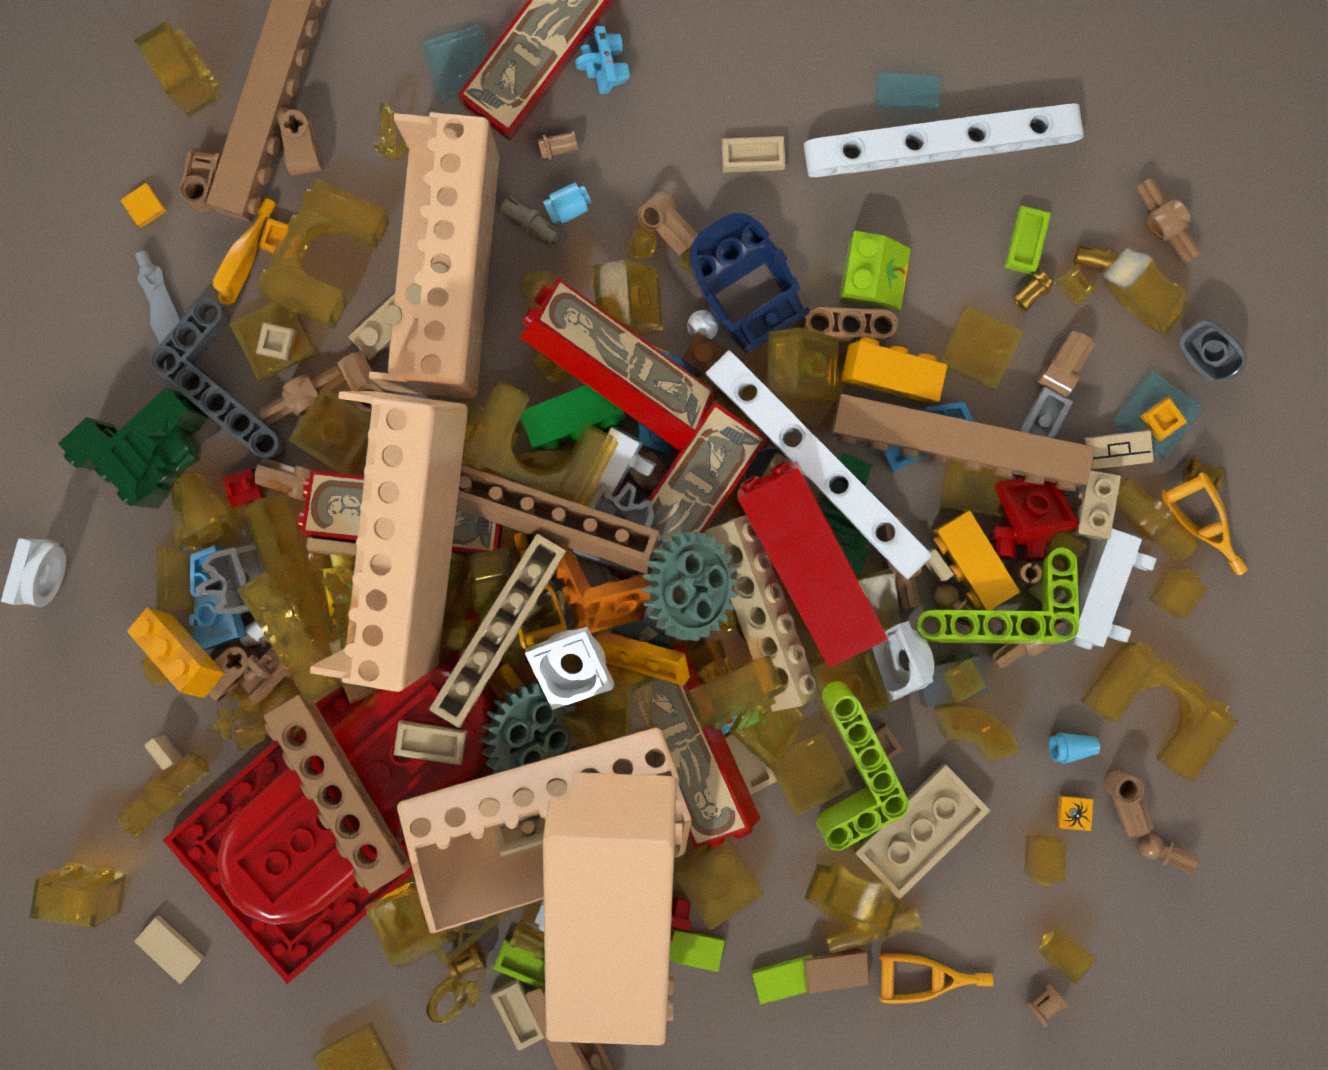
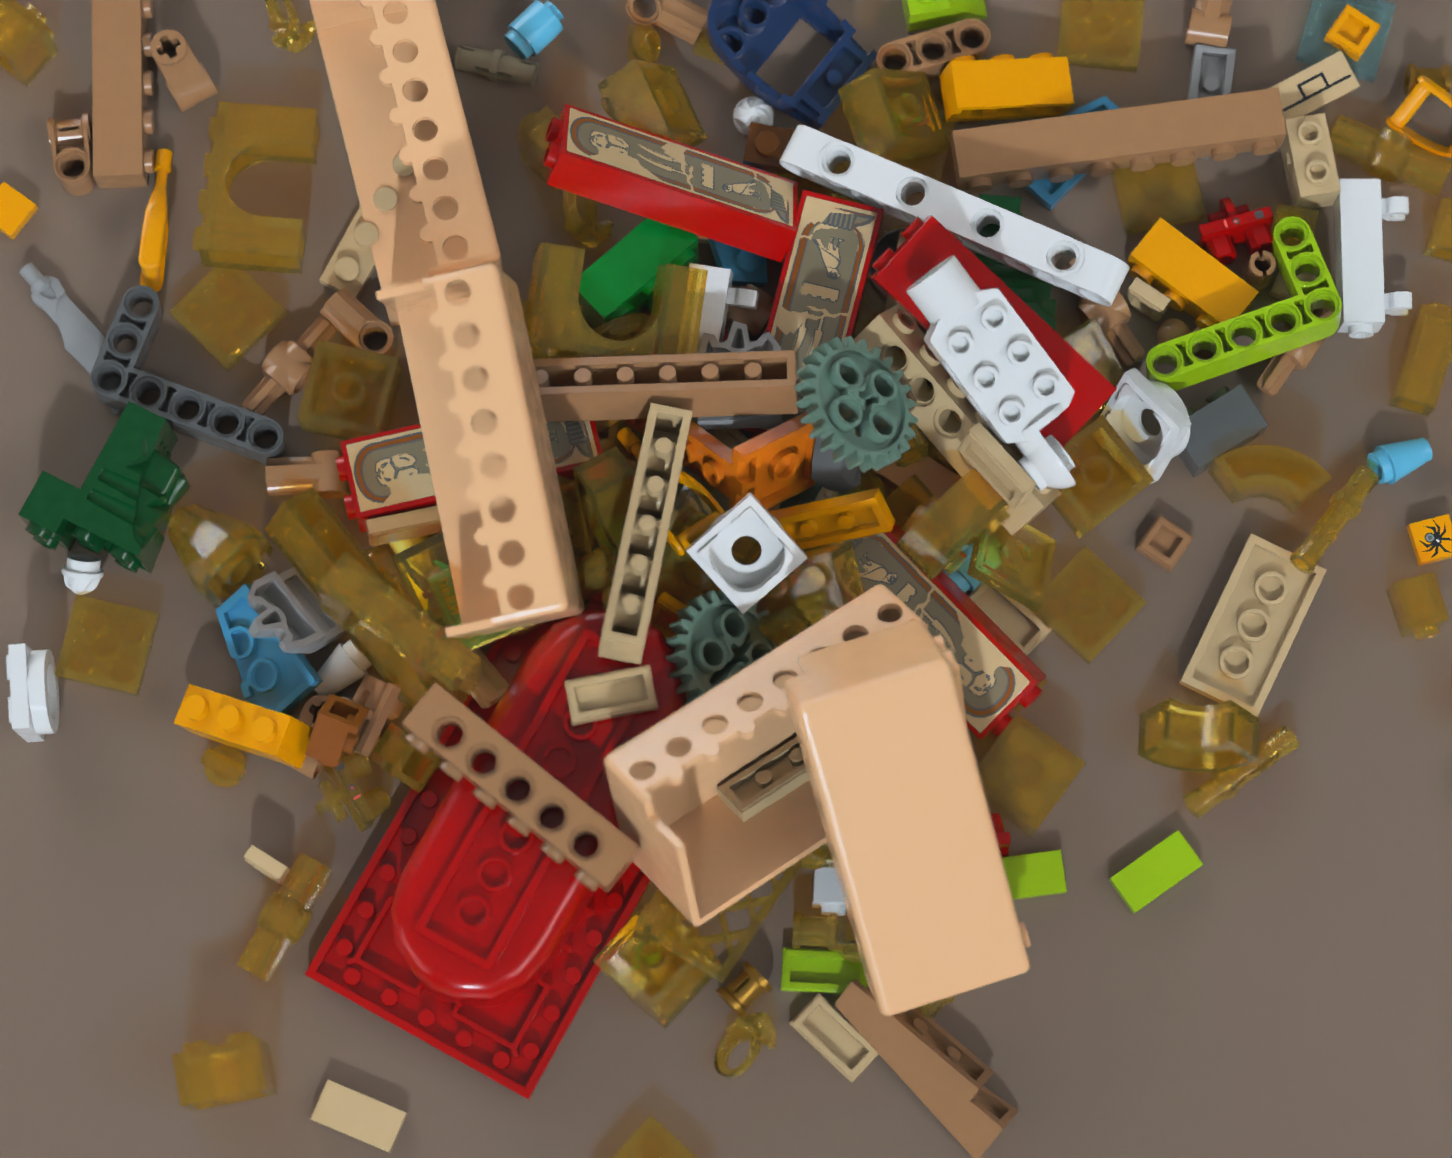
camera: 20 degrees left, 10 degrees down
(104, 494) = (82, 573): none -> white plate
(105, 553) = (107, 645): none -> clear yellow plate
(173, 579) = (203, 647): clear yellow tile -> none
(234, 683) = (336, 730): none -> dark orange brick
(242, 488) = (251, 505): red tile -> none
(272, 234) = (185, 190): light orange tile -> none
(276, 341) = (236, 312): tan tile -> none
(777, 667) = (996, 466): none -> tan tile
(803, 597) = (997, 367): none -> white brick
(836, 971) = (1213, 836): medium nougat tile -> none
(882, 799) = (1153, 564): lime beam -> none
(938, 979) = (1344, 802): light orange piece -> none
(963, 680) = (1229, 416): clear yellow plate -> none
(1035, 508) = (1239, 187): red tile -> none
(1038, 755) = (1343, 506): none -> clear yellow pin

